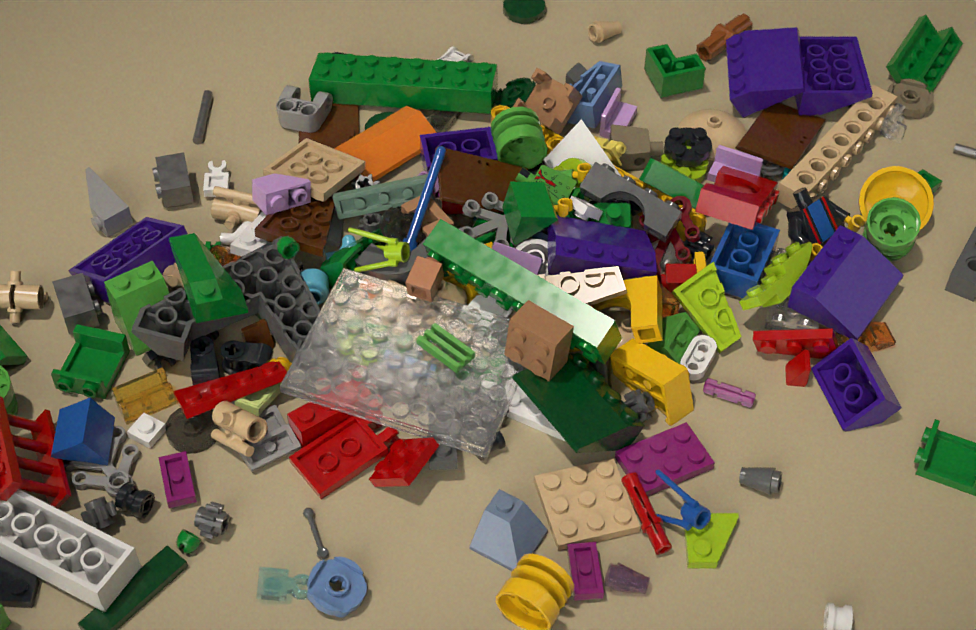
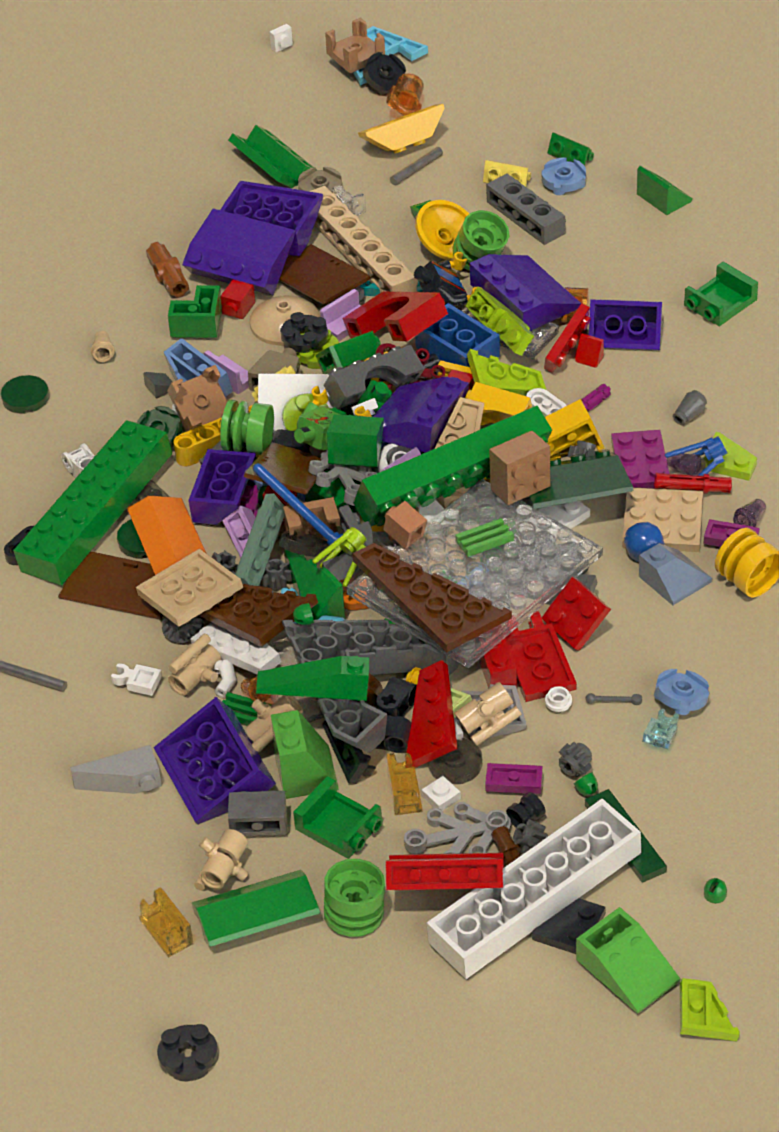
camera: 65 degrees left, 5 degrees down
(77, 506) = (506, 844): none -> reddish brown axle
(83, 433) = (435, 829): blue slope -> none
(173, 180) = (124, 707): flat silver brick -> none
(280, 192) = (221, 611): lavender slope -> none
(291, 480) = (558, 699): none -> white plate
(302, 114) = (83, 593): light grey piece -> none
(332, 336) = (432, 601): none -> reddish brown wing
(536, 491) = (641, 538): none -> blue hair
(672, 501) = (687, 463): none -> cone
(712, 92) = (237, 299): none -> red brick

